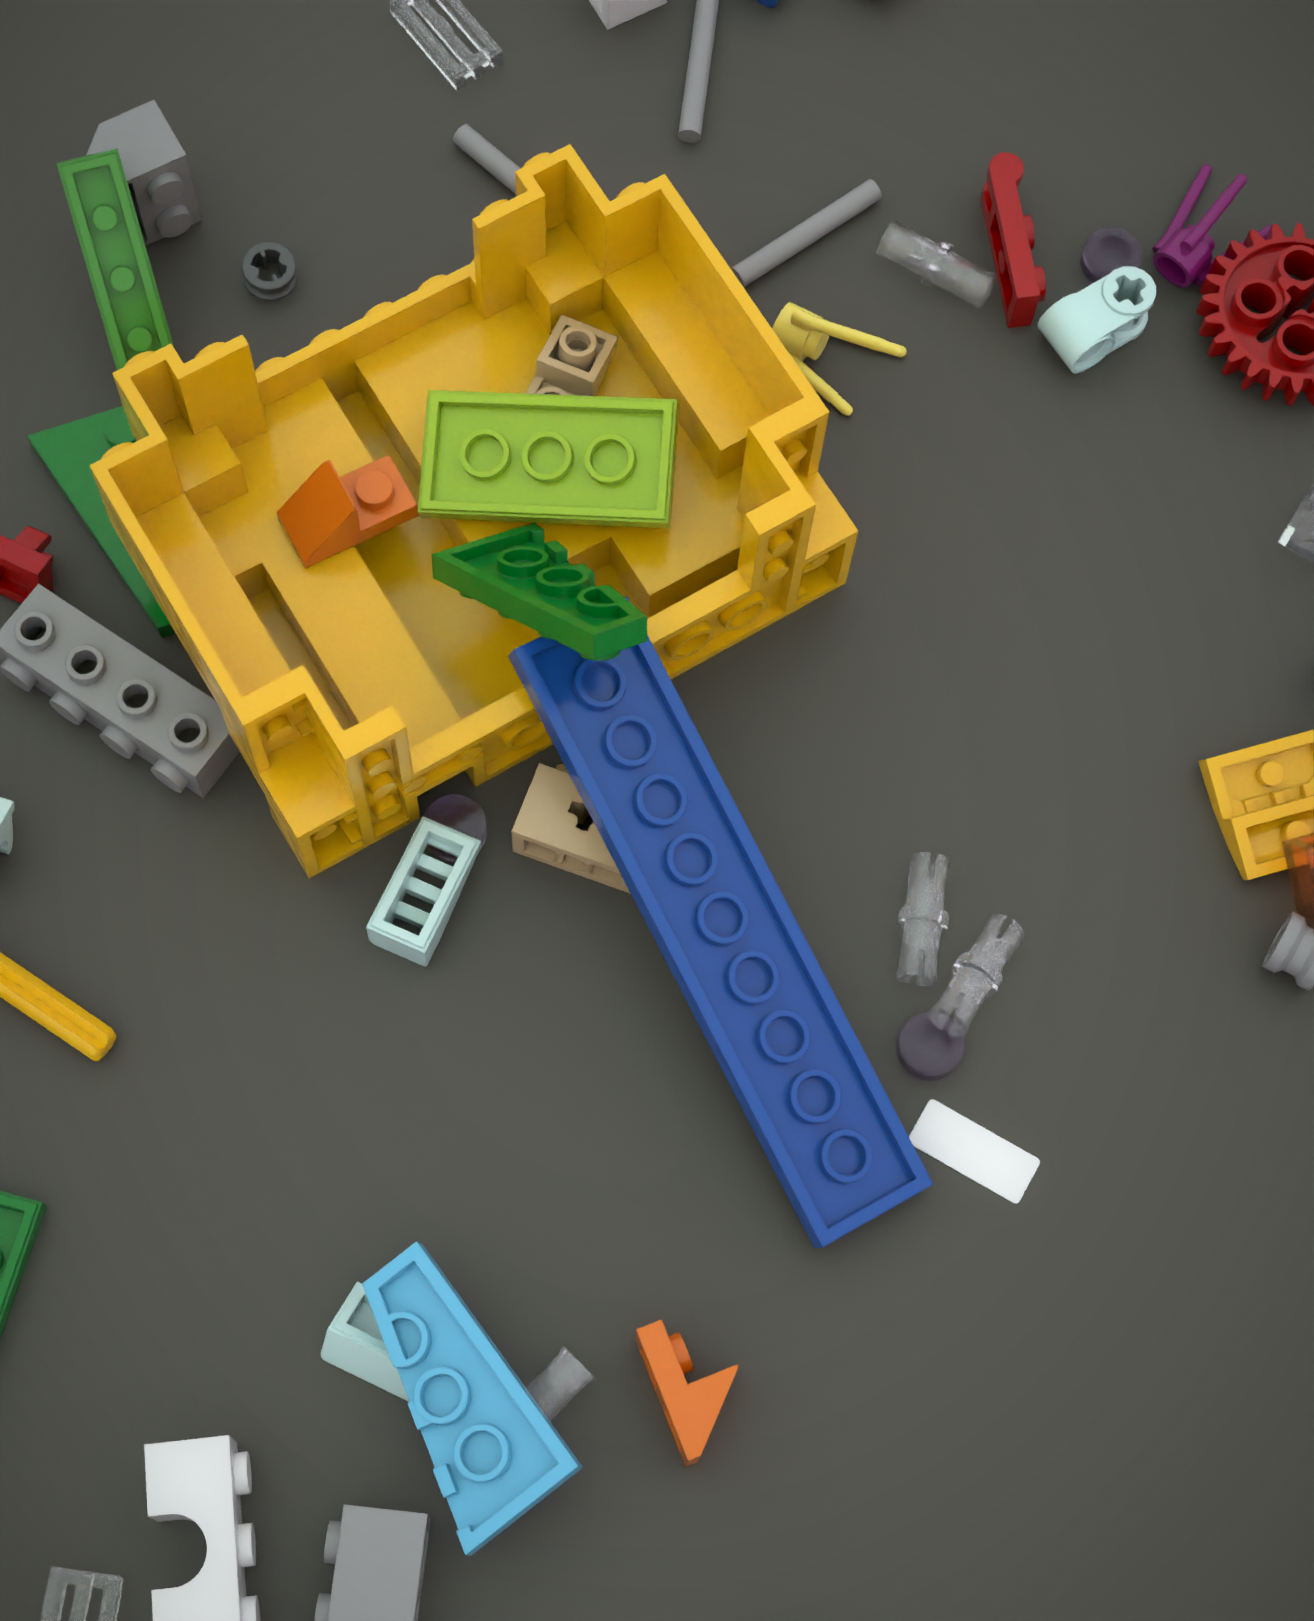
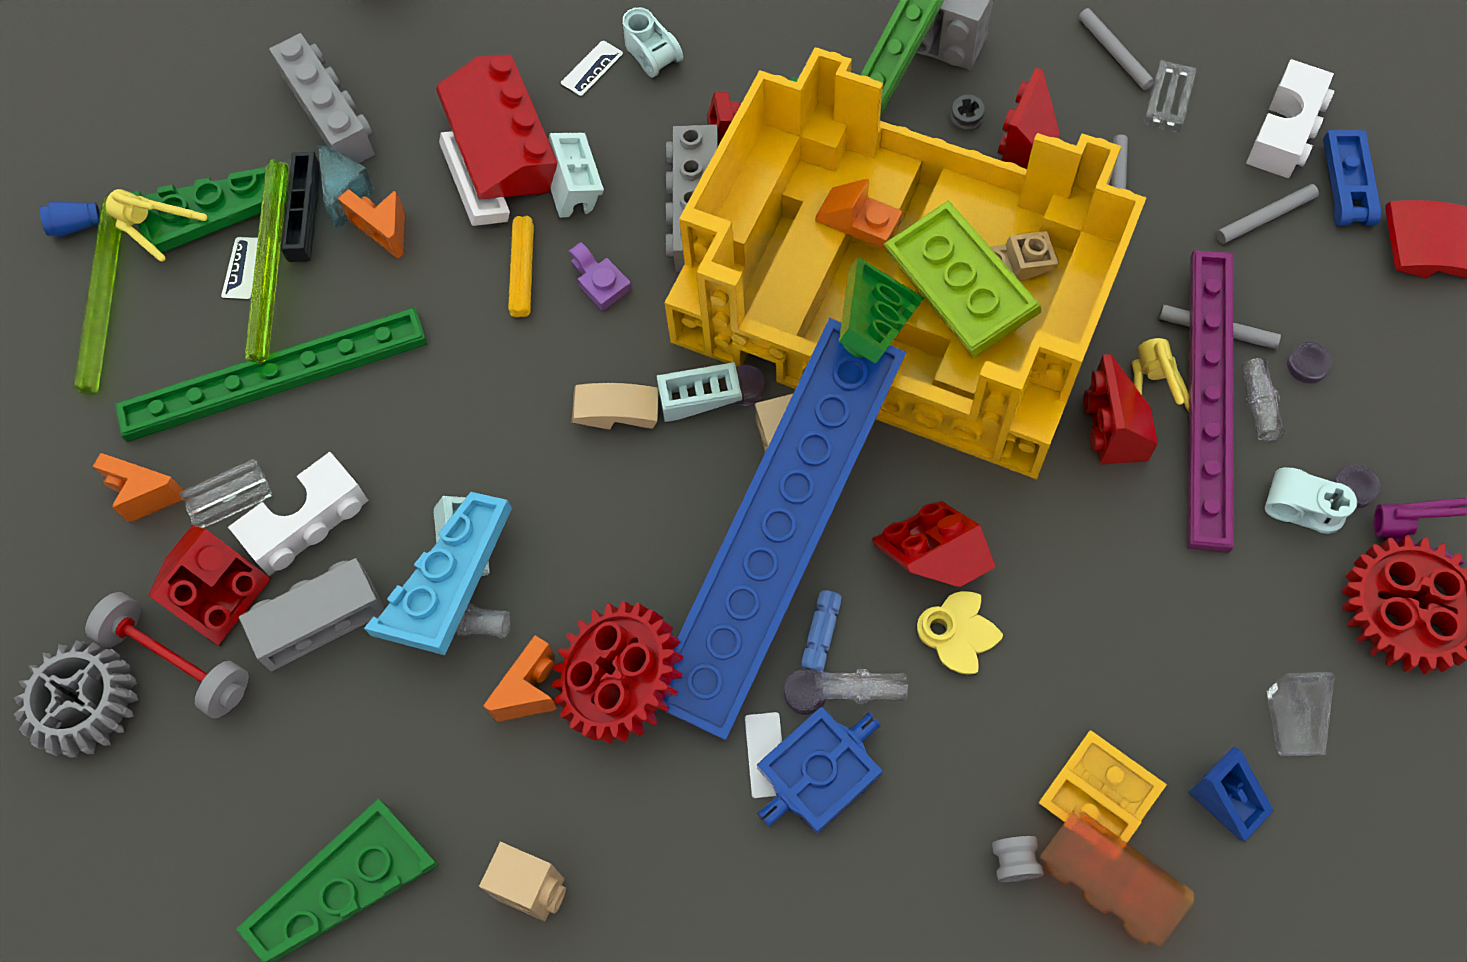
camera: 65 degrees right, 5 degrees down
(145, 904) = (601, 280): none -> medium lavender plate
(323, 34) = (1116, 49): none -> light grey bar
(358, 1010) = (608, 403): none -> tan slope
(380, 221) = (1030, 117): none -> red slope
(700, 1271) = (601, 672): none -> red gear
(859, 756) = (938, 545): none -> red slope
(864, 435) = (1120, 416): none -> red slope
(867, 972) = (821, 630): none -> medium blue axle
(894, 311) = (1211, 403): none -> magenta tile
(923, 919) = (873, 639): clear pin -> none
(925, 179) = (1309, 362): none -> clear purple tile
(966, 1553) = (524, 882): none -> tan brick
(986, 810) = (964, 635): none -> light yellow plate
(1011, 241) = (1314, 423): red plate -> none
(1045, 1098) = (819, 770): none -> blue plate

